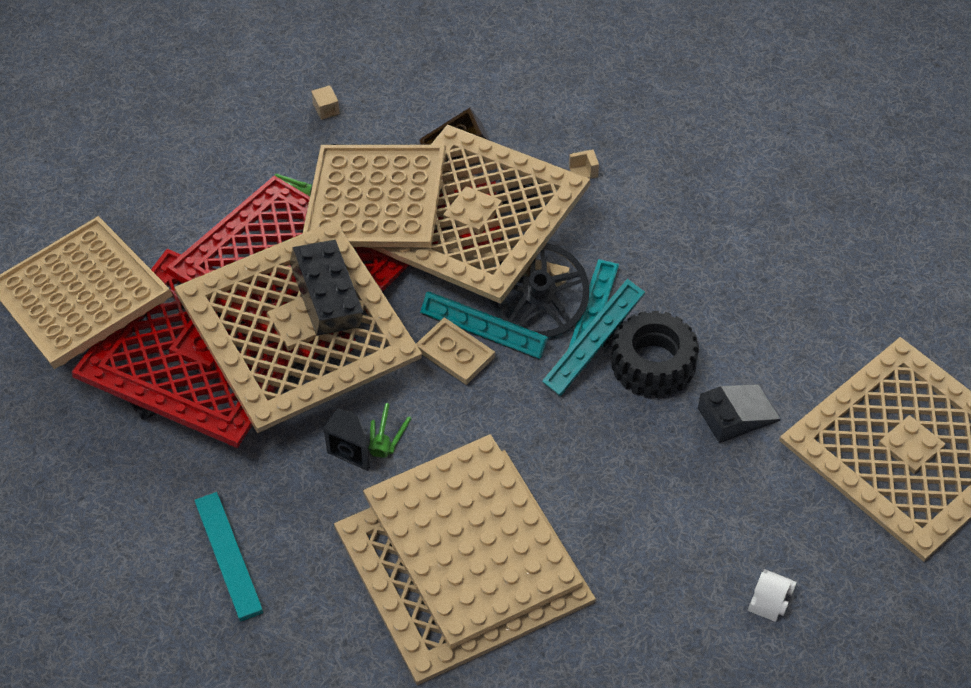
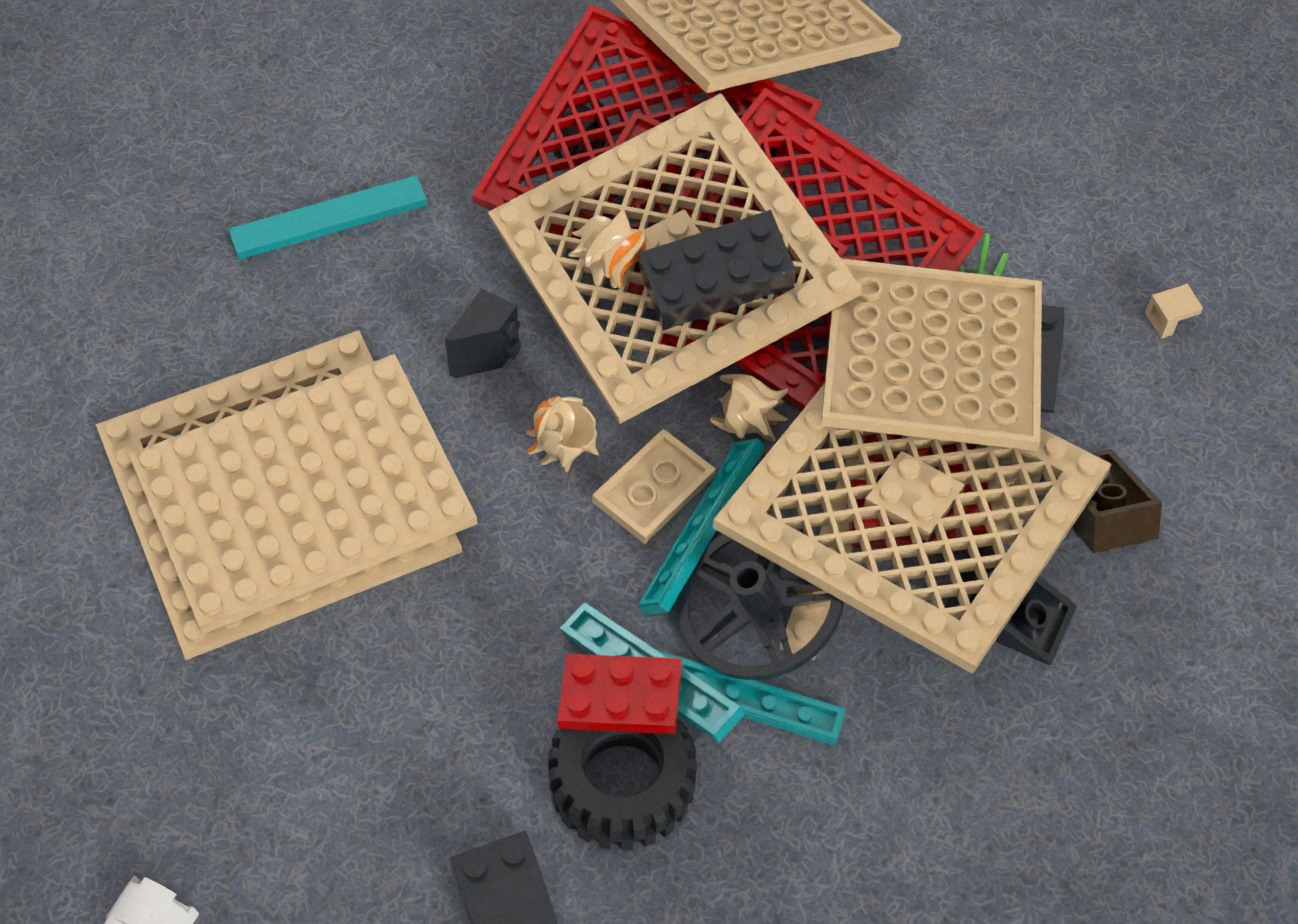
camera: 90 degrees right, 5 degrees up
(308, 343) = (609, 247): none -> tan hair
(380, 445) = (487, 385): bright green plant -> none
(404, 297) = (749, 407): none -> tan hair
(424, 391) = (563, 430): none -> tan hair
(584, 164) = (1064, 700): tan panel -> none
(618, 341) = (620, 693): none -> red plate

